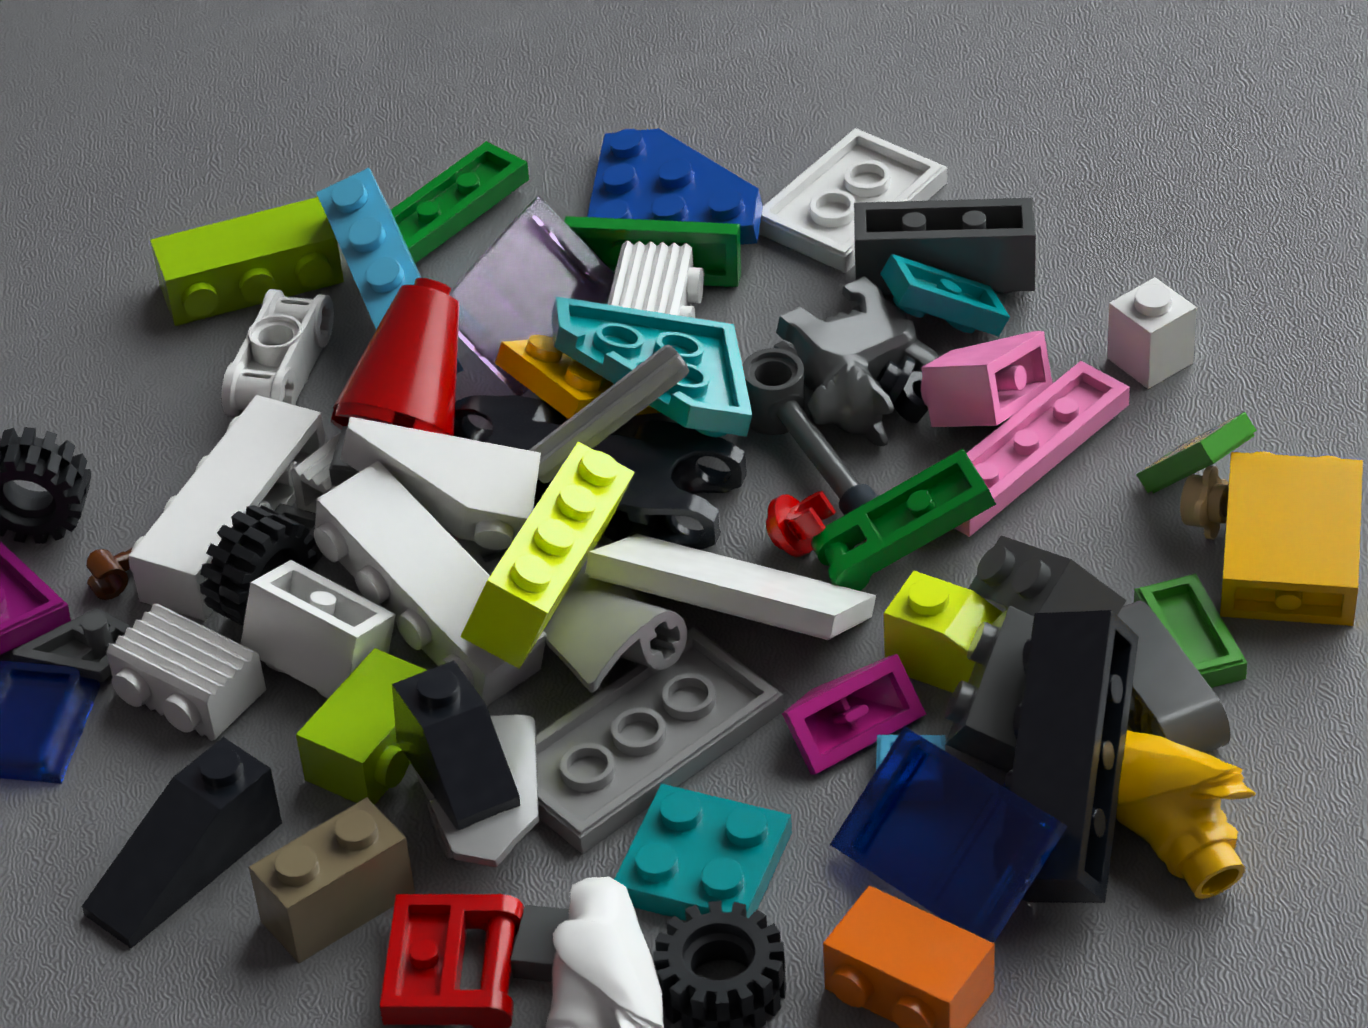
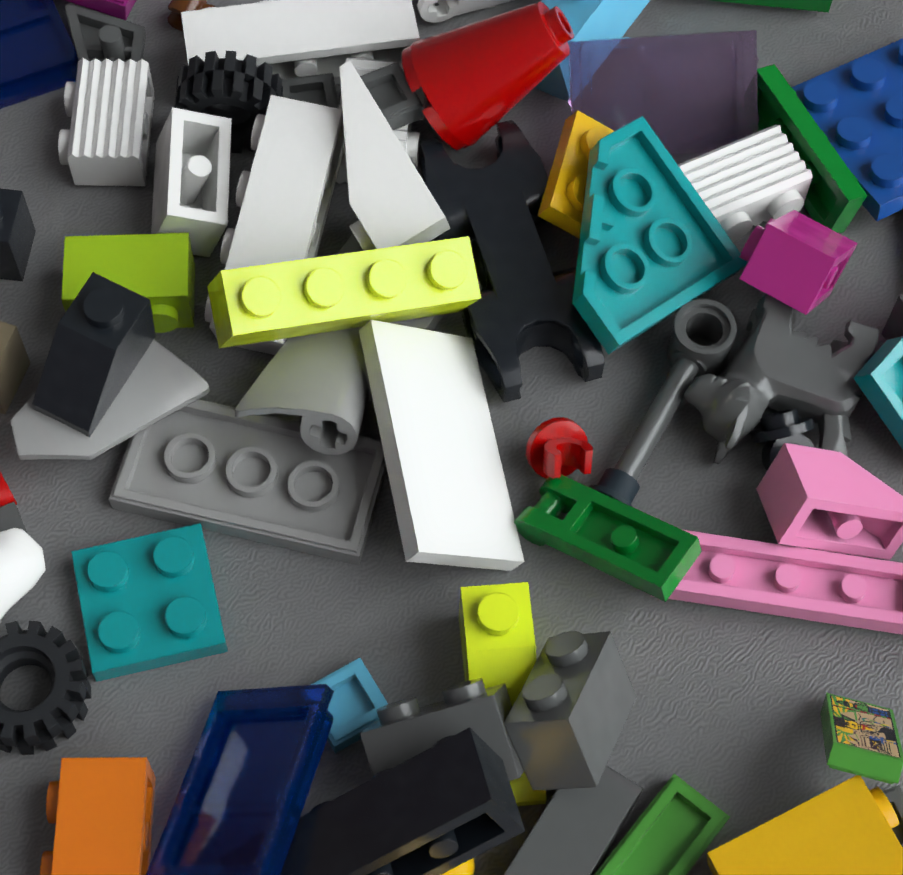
camera: 50 degrees right, 20 degrees up
(611, 409) = (534, 236): light grey axle -> none
(763, 286) = (795, 260): none -> dark pink brick
(851, 712) = (371, 618): dark pink slope -> none
(1205, 501) = (811, 775): tan plate -> none

